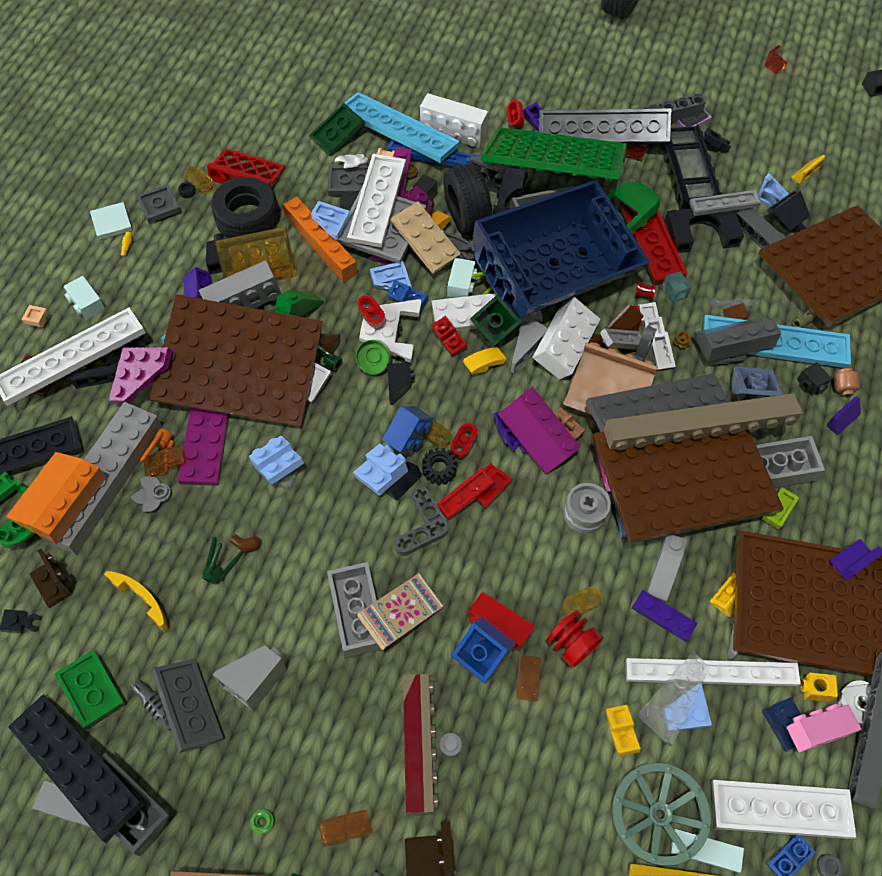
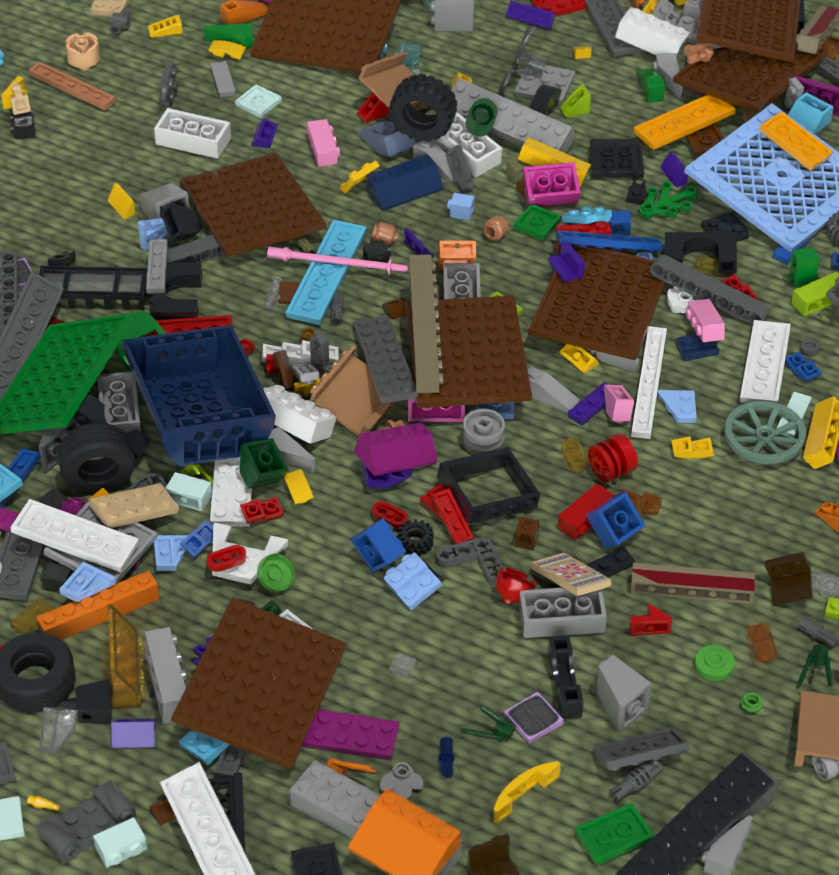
camera: 80 degrees left, 15 degrees down
(104, 272) = (75, 829): none -> dark grey piece
(137, 370) = (256, 770): plate -> none
(158, 461) = (365, 754): clear orange slope -> none
(178, 527) = (446, 756): none -> clear blue axle
(194, 235) = (56, 728): none -> clear slope
(230, 599) = (533, 717): none -> tile
(247, 544) = (476, 699): reddish brown arm -> none
(253, 627) = (562, 667): none -> black arch
(275, 459) = (385, 665): light blue plate -> none
(297, 302) = (194, 628): green slope -> none
(309, 198) = (26, 620): none -> clear yellow tile
(314, 777) = (714, 663): none -> bright green piece
(359, 706) = (654, 623): none -> red slope
(385, 559) = (511, 582): none -> red cylinder
(399, 380) = (309, 558): black slope -> none
(433, 651) = (613, 563): none -> black plate
(450, 744) = (694, 561): light grey plate -> none
(458, 565) = (527, 533): none -> reddish brown brick
(538, 503) = (485, 462): none -> black window
(665, 638) = (618, 403): none -> bright pink slope
(672, 702) = (671, 405): clear wing -> none
(676, 287) = (247, 325): clear light blue brick -> none
(738, 338) = (322, 291): dark grey slope -> none
(755, 382) = (379, 288): sand blue slope -> none
(782, 301) = (286, 254): none -> bright pink bar
(818, 196) = (158, 199): none -> light grey slope
(827, 683) = (670, 317): yellow brick -> none
(828, 446) = (450, 254): none -> orange window

